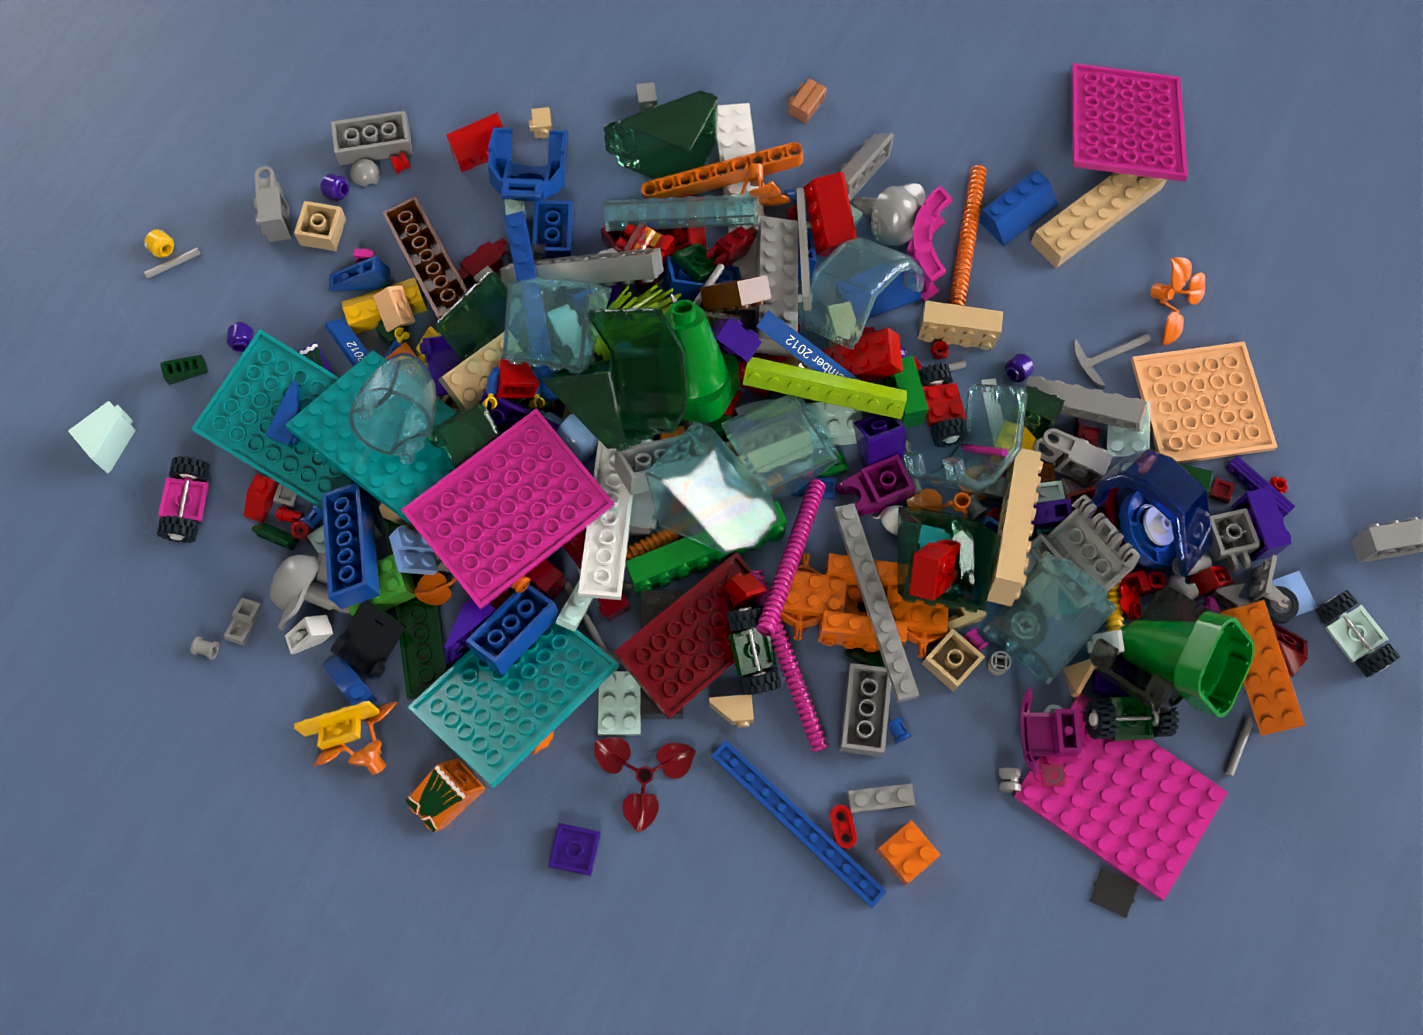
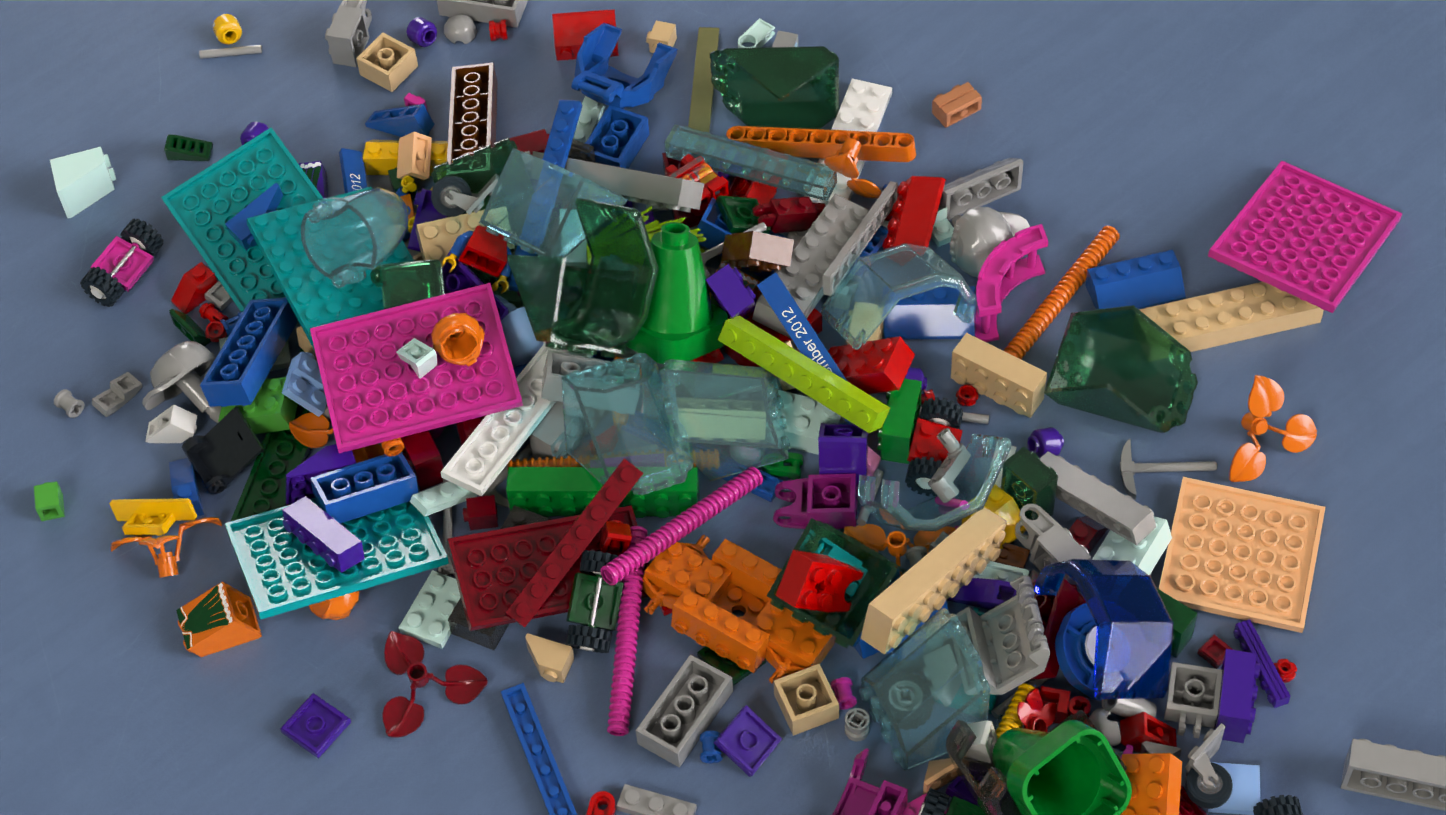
camera: 30 degrees right, 15 degrees down
(236, 745) = (49, 501): none -> bright green brick
(464, 340) = (453, 195): none -> plate
(503, 687) = (323, 534): none -> brick
(509, 499) = (419, 356): none -> light aqua slope
(539, 472) = (458, 339): none -> orange helmet
(594, 150) = (702, 86): none -> olive tile
(617, 92) = (758, 34): none -> light aqua piece
(720, 611) = (573, 543): none -> dark red plate
(876, 604) = (743, 601): light grey plate -> none
(926, 715) = (747, 740): none -> dark purple plate
(965, 619) = (850, 666): tan slope -> none
(970, 429) = (957, 457): none -> light grey beam
(1051, 286) = (1123, 369): none -> clear green windscreen

